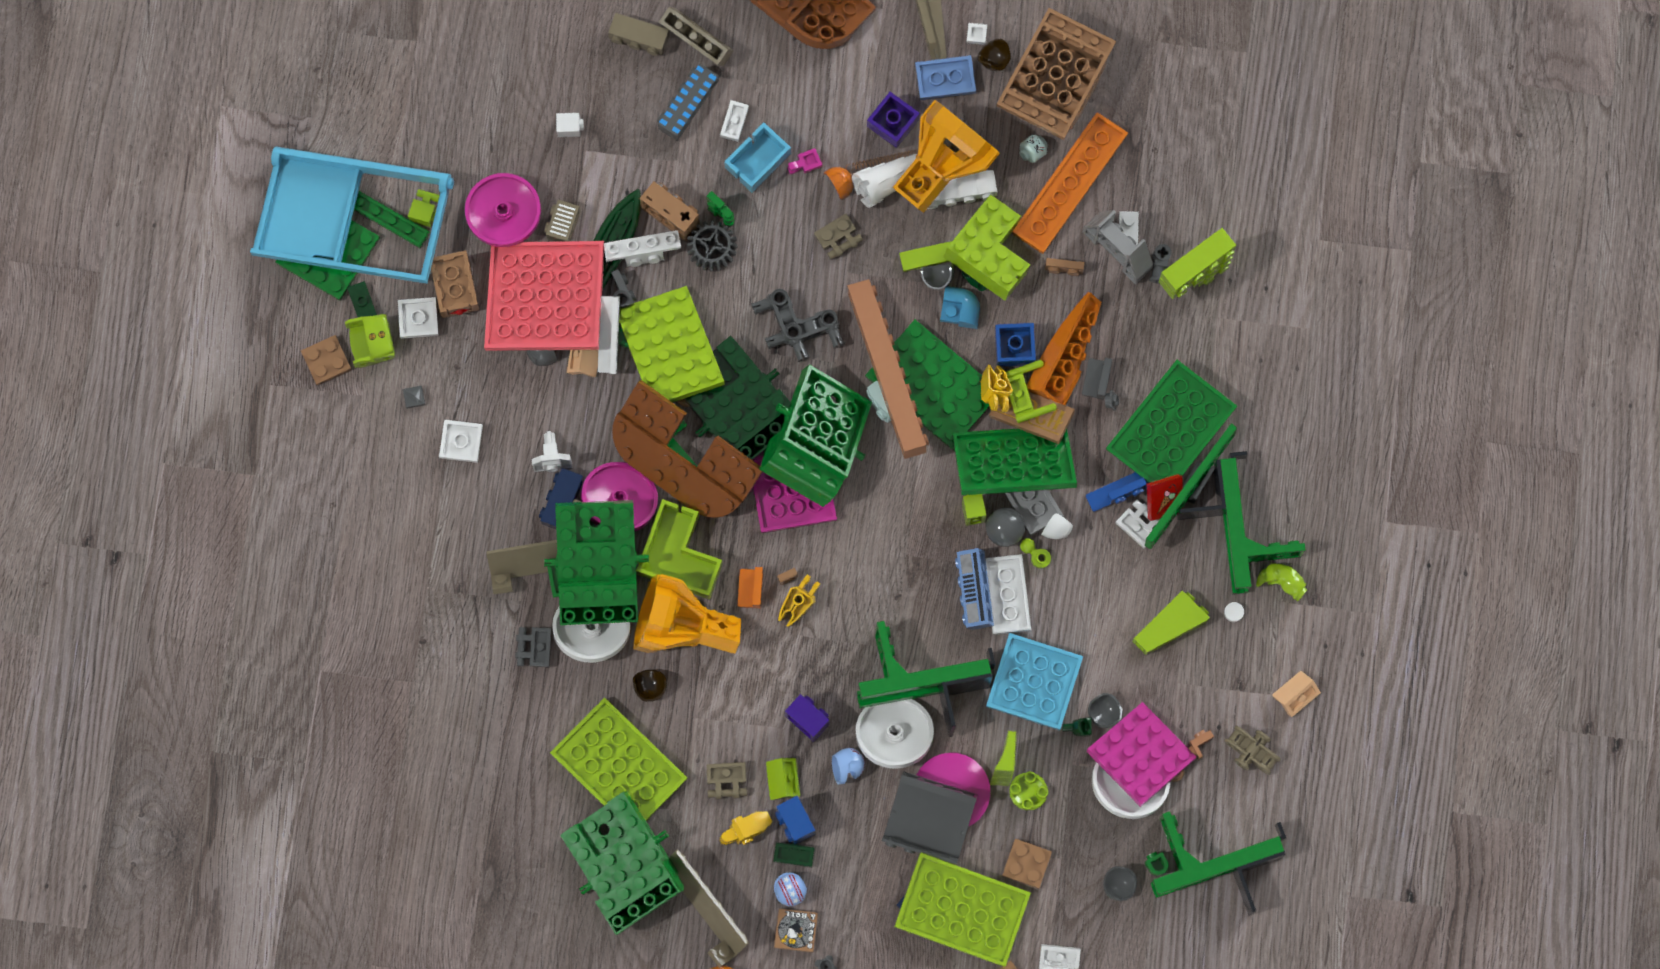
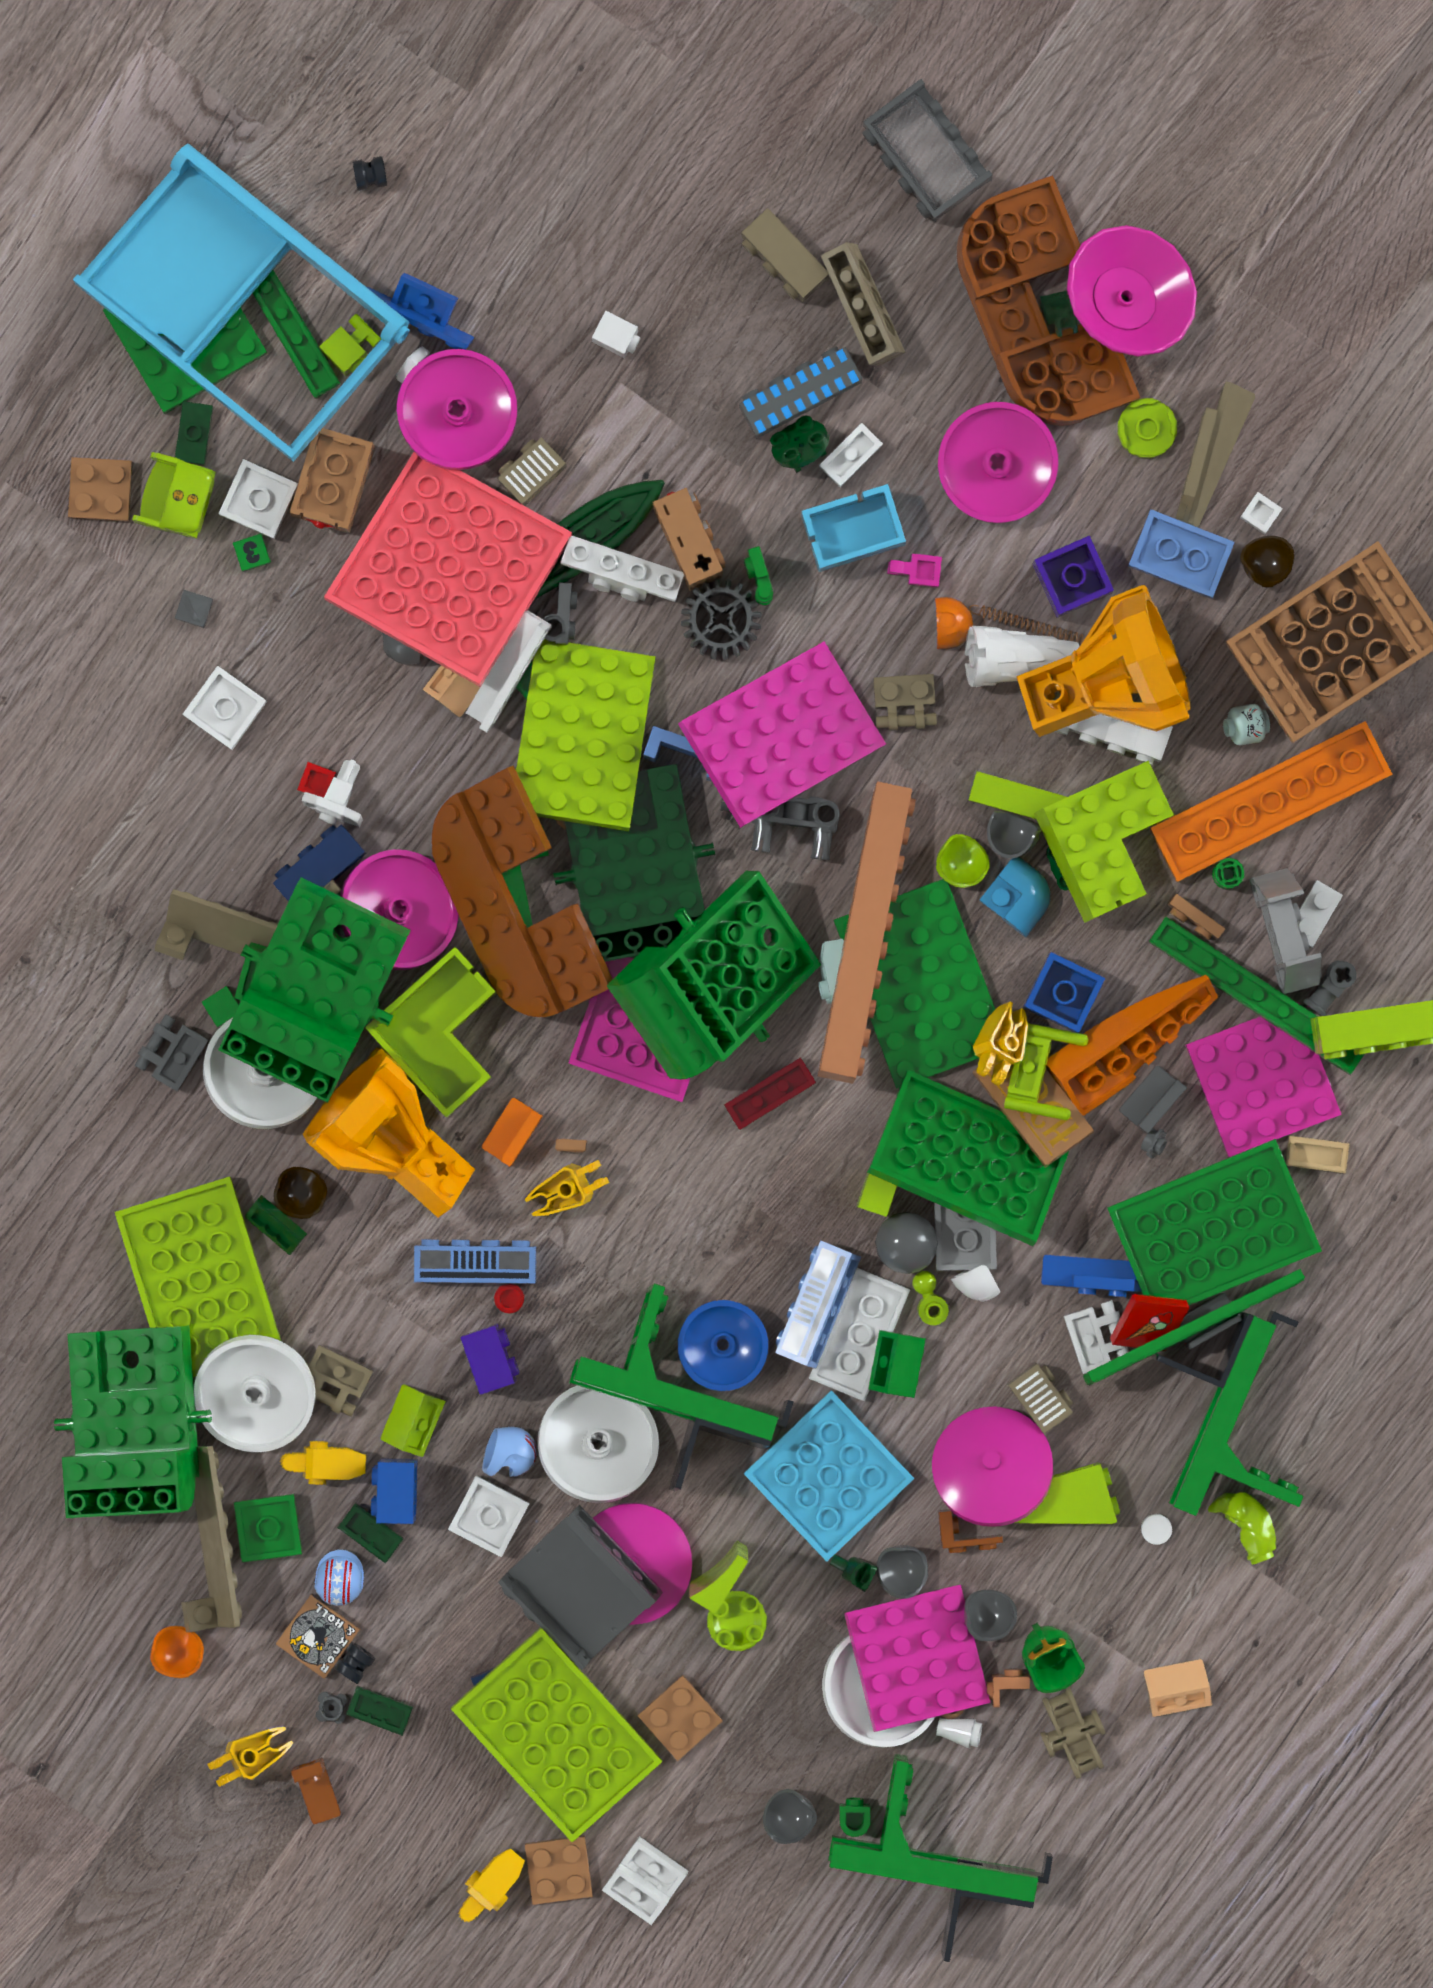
camera: 25 degrees right, 10 degrees up
(385, 110) = (369, 173): none -> black wheel
(430, 349) = (251, 552): none -> green tile
(458, 165) = (427, 310): none -> blue bracket
(463, 197) = (417, 356): none -> white tile
(533, 451) = (316, 780): none -> red plate
(548, 606) = (221, 1006): none -> green tile
(645, 710) = (275, 1225): none -> dark green plate
(686, 808) = (256, 1393): none -> white dish
(703, 128) = (800, 443): none -> dark green plate
(730, 323) = (661, 737): none -> medium blue panel
(734, 883) = (268, 1527): none -> green plate
(769, 671) = (475, 1263): none -> brick
(780, 287) = (781, 734): none -> dark pink plate
(799, 681) = (509, 1298): none -> red plate
(817, 81) = (998, 462): none -> dark pink dish
(825, 932) = (354, 1662): none -> black wheel
(854, 952) = (379, 1710): none -> dark green plate
(855, 808) = (488, 1516): none -> white plate
(883, 488) = (770, 1093): none -> dark red plate
(889, 22) = (1147, 428): none -> lime tile
(918, 305) = (962, 861): none -> lime helmet
(934, 626) = (723, 1368): none -> blue dish
(1037, 597) = (897, 1364): none -> green brick
(1068, 237) = (1224, 876): none -> green wheel
(1116, 289) = (1243, 987): none -> green tile
(1118, 672) = (949, 1527): none -> dark orange bracket
(1123, 624) = (992, 1466): none -> dark pink dish
(1128, 573) = (1040, 1397): none -> dark tan brick
(1151, 334) = (1260, 1084): none -> dark pink plate
(1168, 709) = (990, 1615): none -> dark grey helmet
(1189, 783) = (961, 1731): none -> white cone
(1205, 359) = (1317, 1154): none -> tan tile
(1217, 713) = (1051, 1659): none -> green helmet

